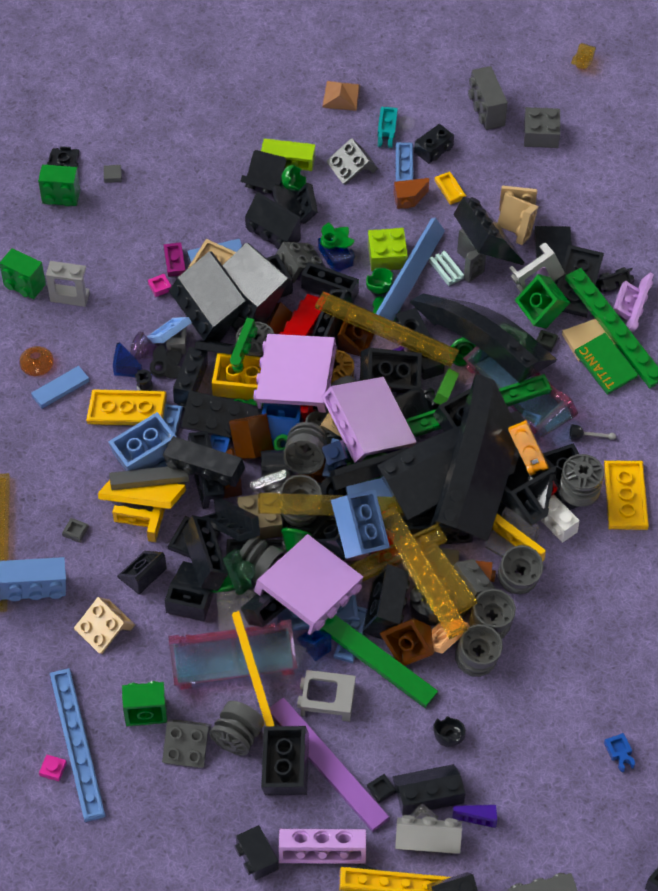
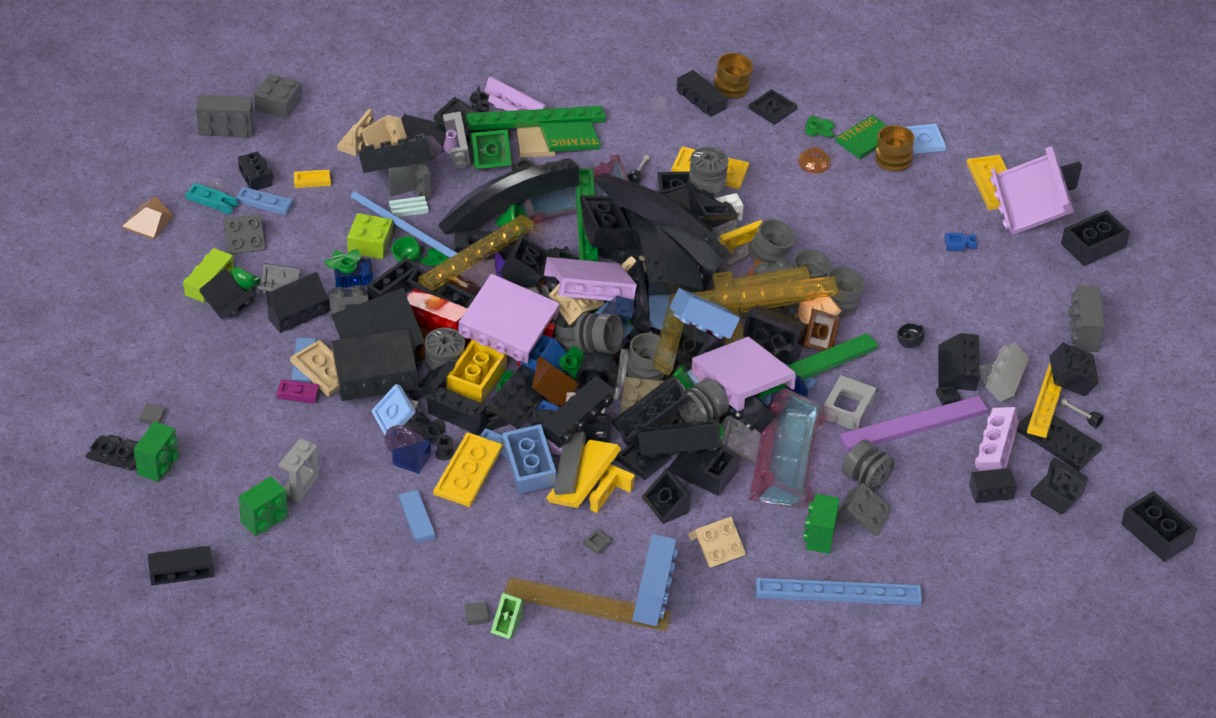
camera: 75 degrees left, 10 degrees down
(37, 366) = (373, 534): clear orange piece -> none
(52, 768) = (859, 614): dark pink plate -> none
(159, 285) = (325, 410): dark pink plate -> none
(239, 571) = (718, 410): clear green tile -> none
(243, 345) = (457, 347): green plate -> none
(252, 669) = (810, 436): yellow tile -> none
(285, 760) = (912, 441): black brick -> none
(410, 192) = (307, 204): dark orange slope -> none
(446, 386) = (553, 238): bright green piece -> none
(477, 814) = (995, 338): dark purple slope -> none
(528, 447) = (669, 186): light orange plate -> none
(584, 56) = (203, 46): clear yellow bracket -> none

